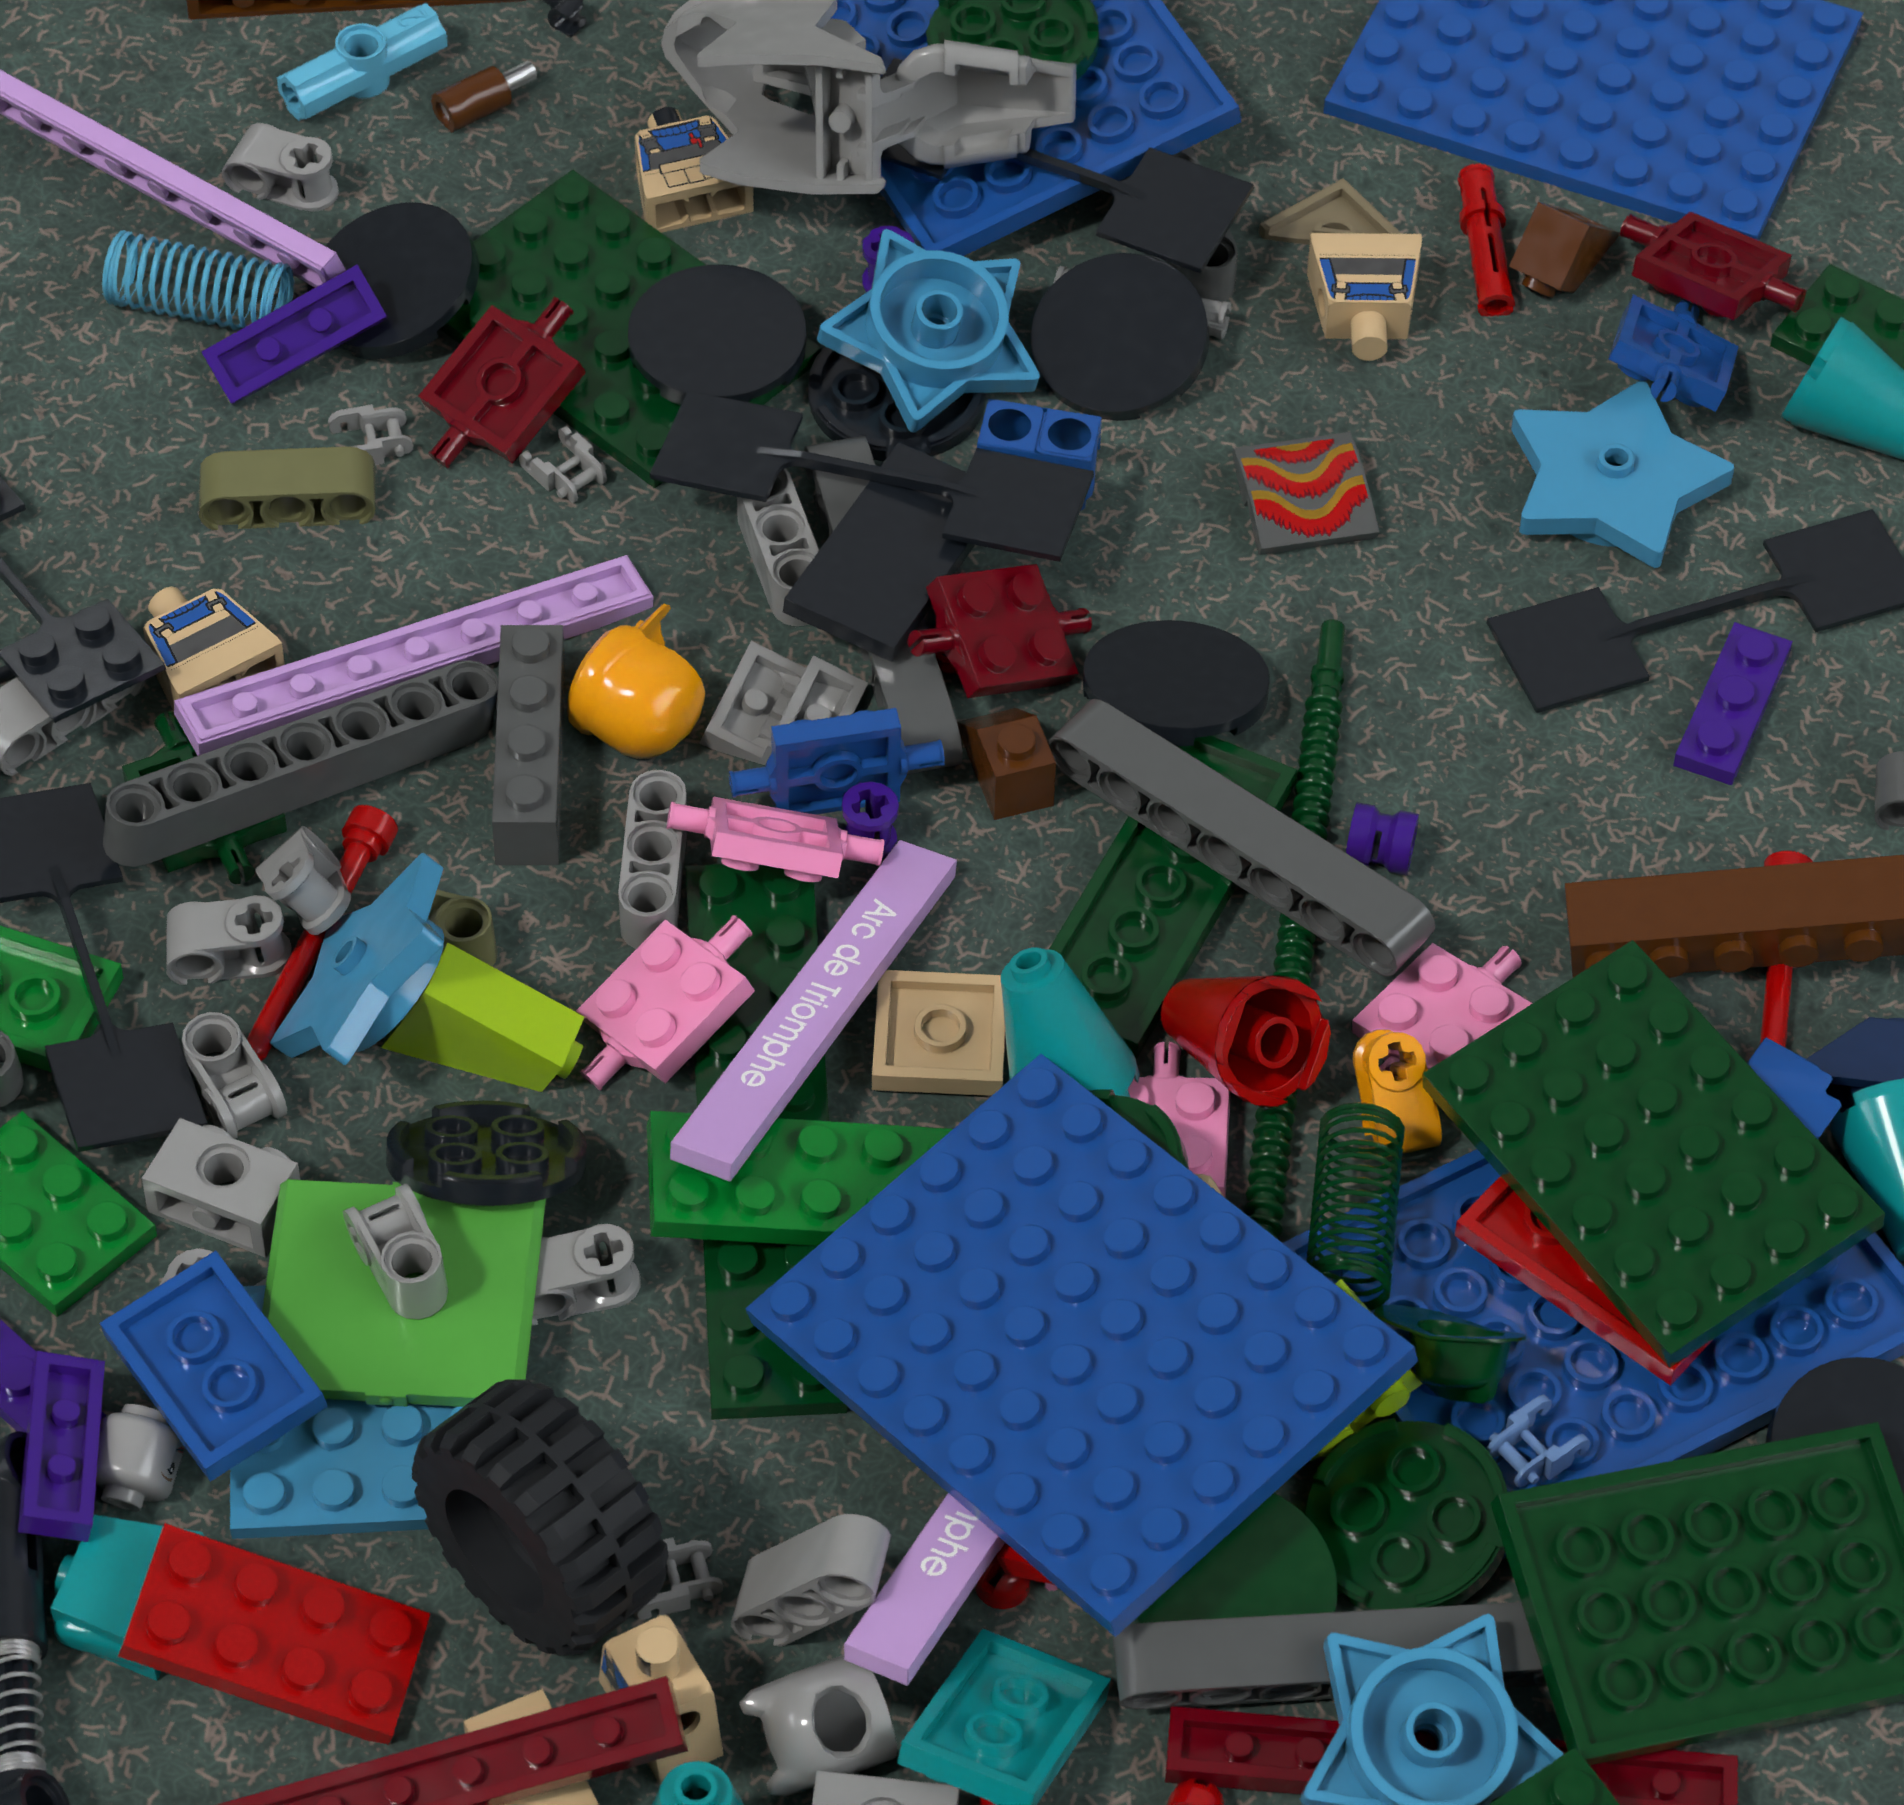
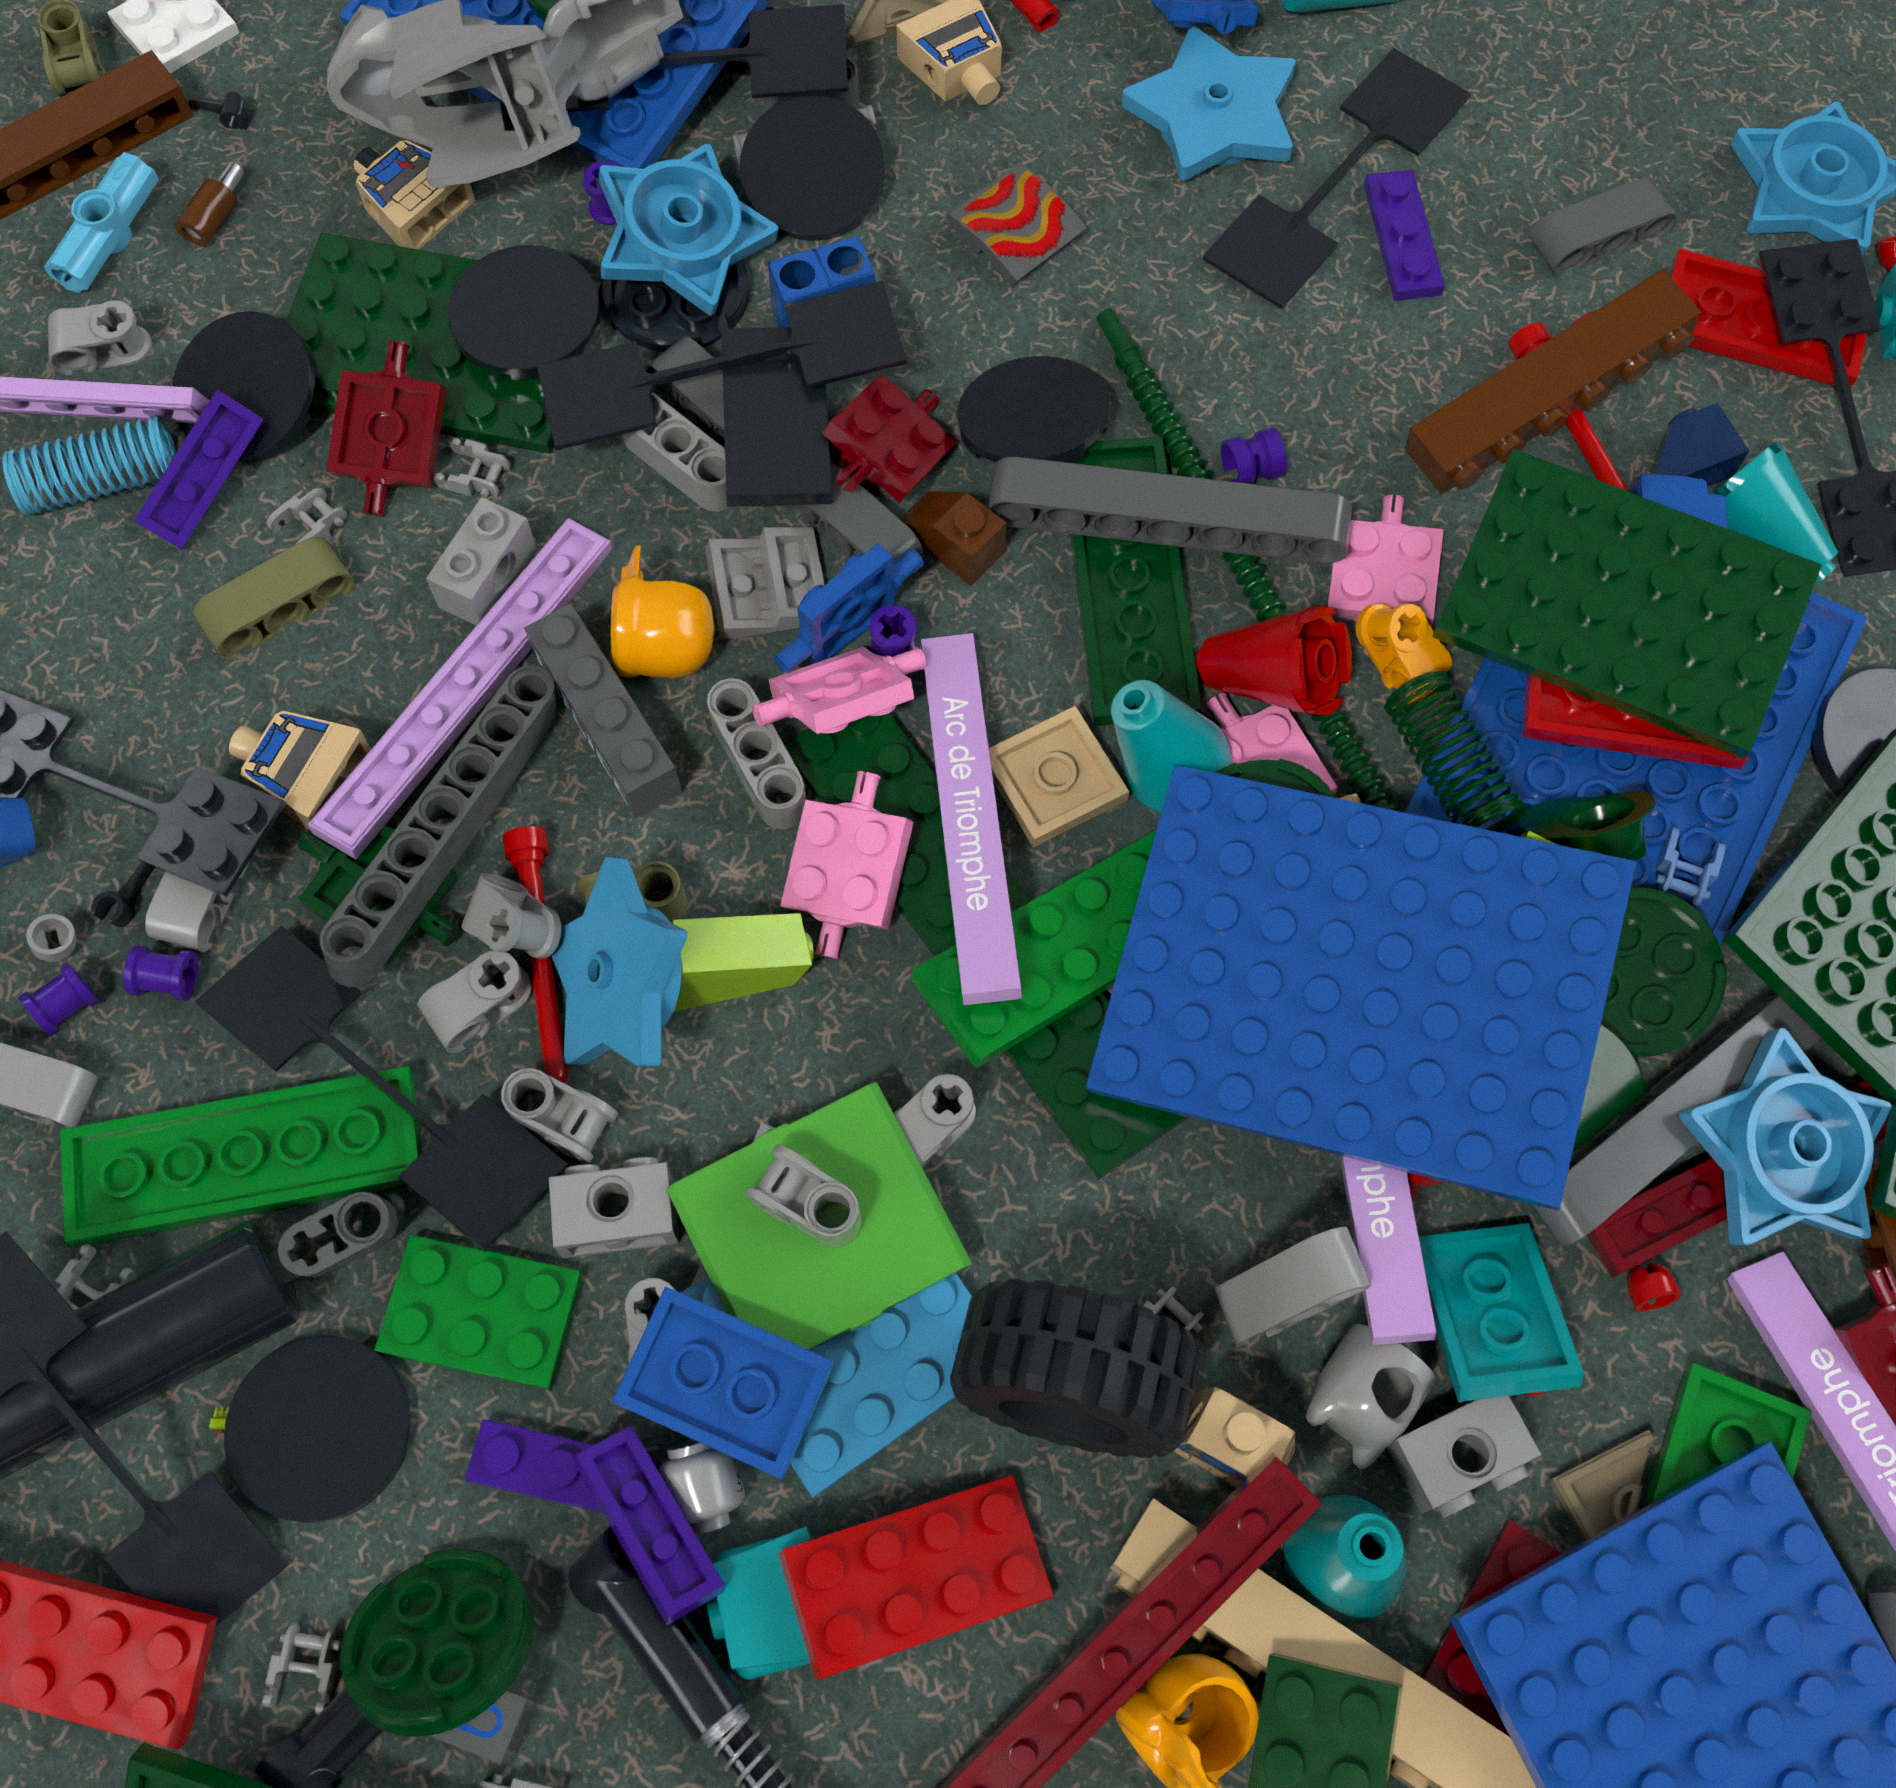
camera: 30 degrees left, 15 degrees up
(486, 1154) = (804, 1071): black tile -> none
(509, 549) = (481, 561): none -> light grey brick

